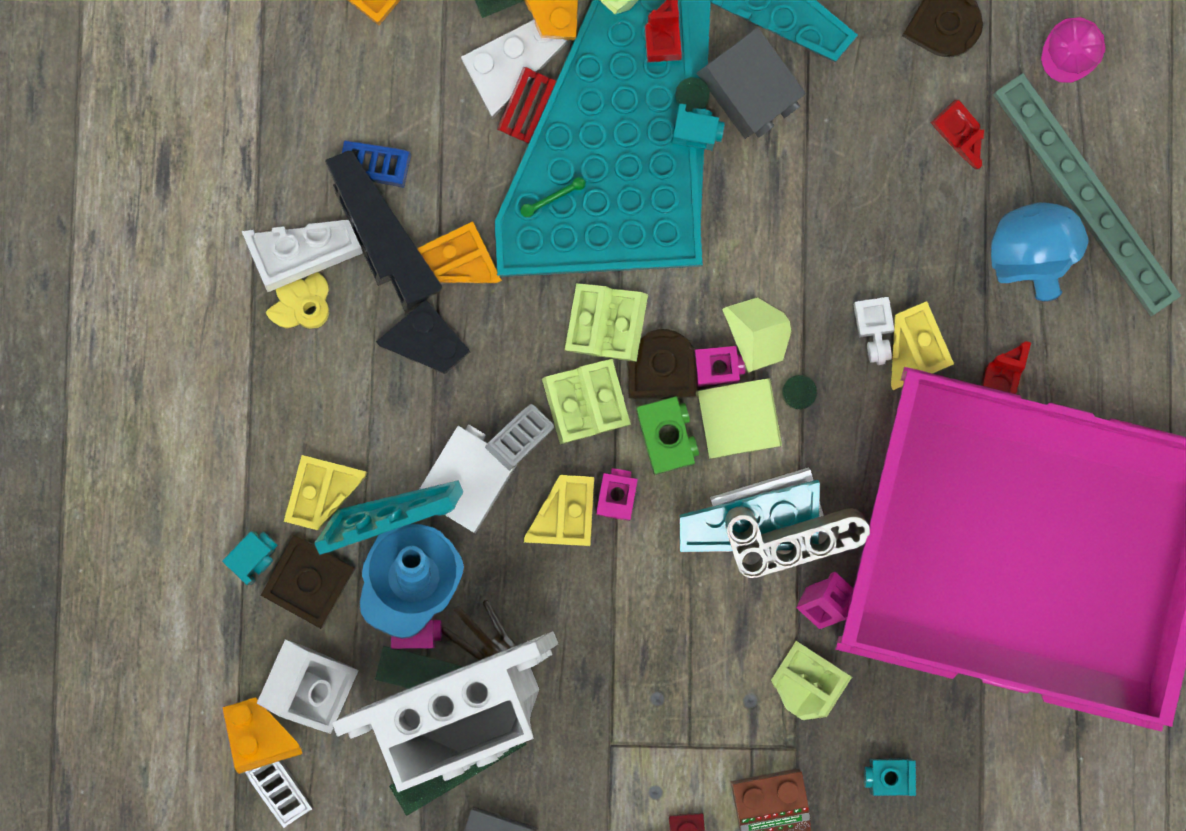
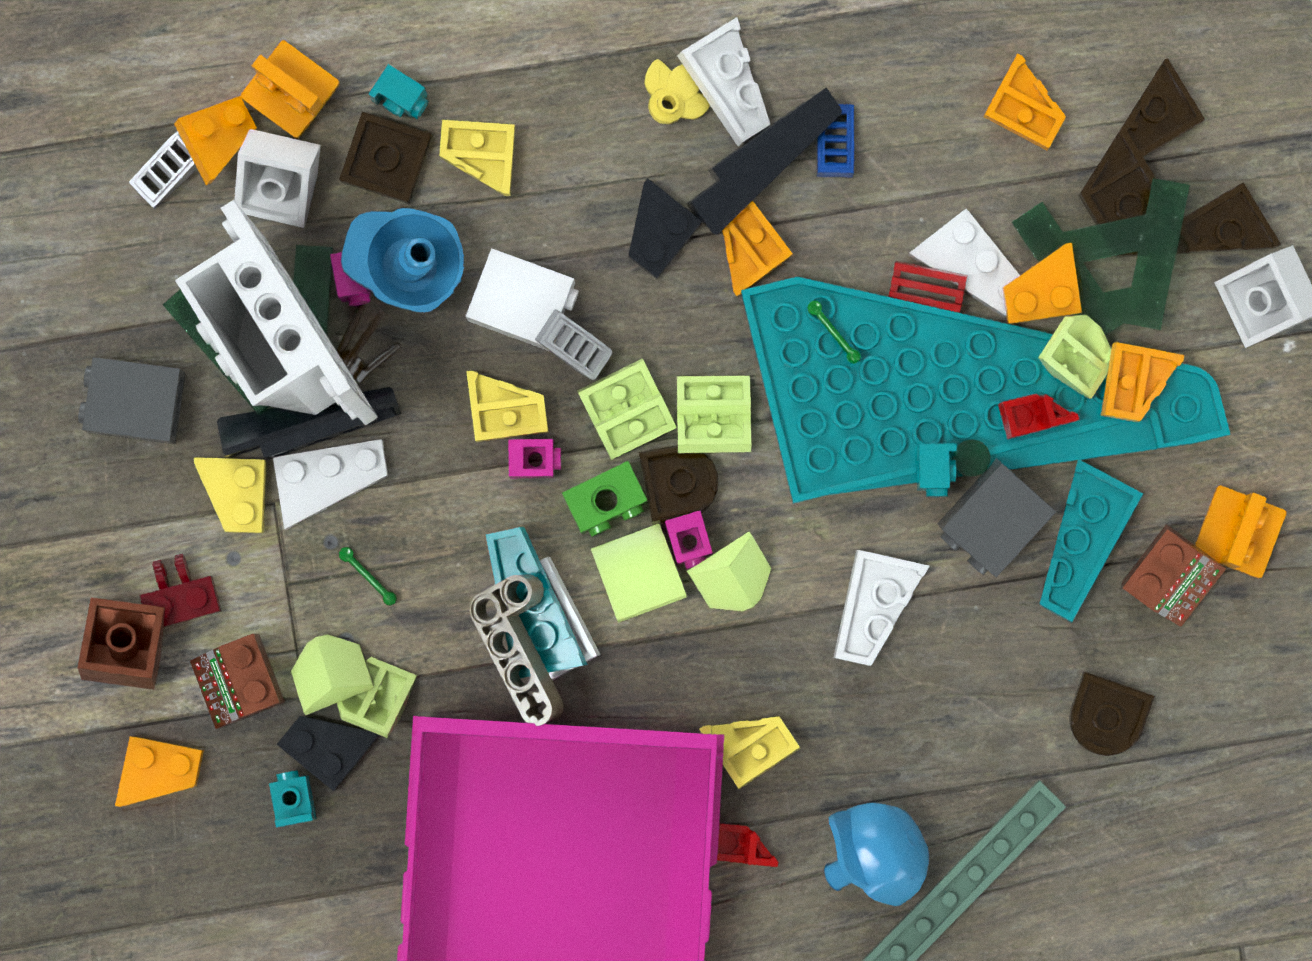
camera: 85 degrees right, 0 degrees up
(225, 659) = (289, 88): none -> light orange bracket
(386, 514) = (466, 221): teal wing -> none
(548, 714) = (286, 431): none -> black wedge
(594, 779) = (235, 491): none -> light yellow wing
(596, 691) = (323, 477): none -> white wing
(672, 685) = (347, 555): none -> green hinge
(780, 720) = (330, 672): none -> yellowish green slope
(799, 392) = (678, 631): clear green tile -> none
(807, 211) = (874, 600): none -> white wing
(826, 601) = (462, 696): dark pink brick -> none
(848, 737) = (326, 748): none -> black wing
(874, 319) = (770, 695): white plate -> none
(961, 132) = (990, 753): red slope -> none
(1073, 50) = (1102, 856): dark pink piece -> none

